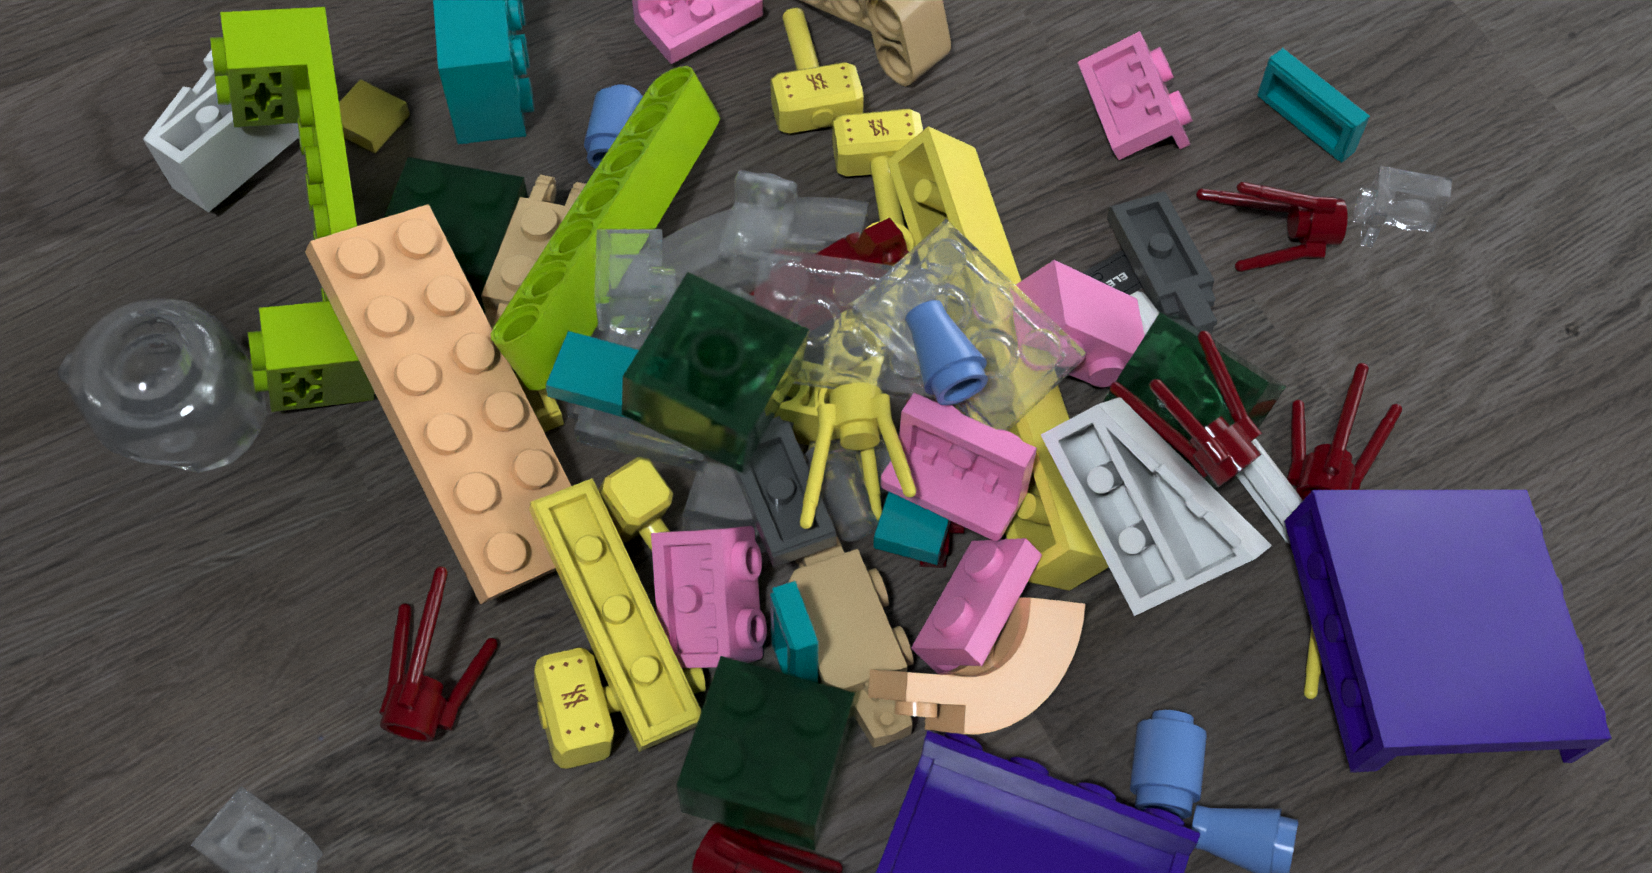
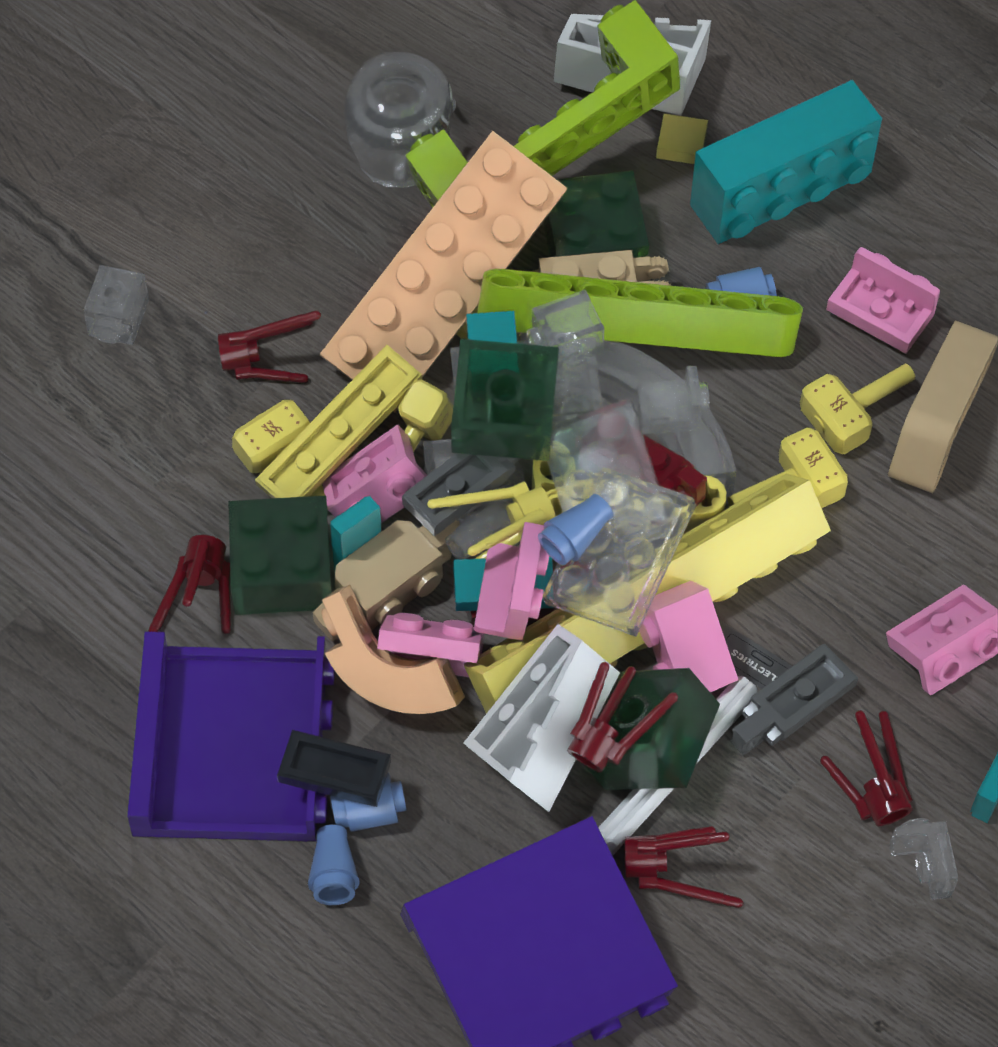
camera: 70 degrees right, 0 degrees up
(1137, 779) = (334, 768): none -> black tile

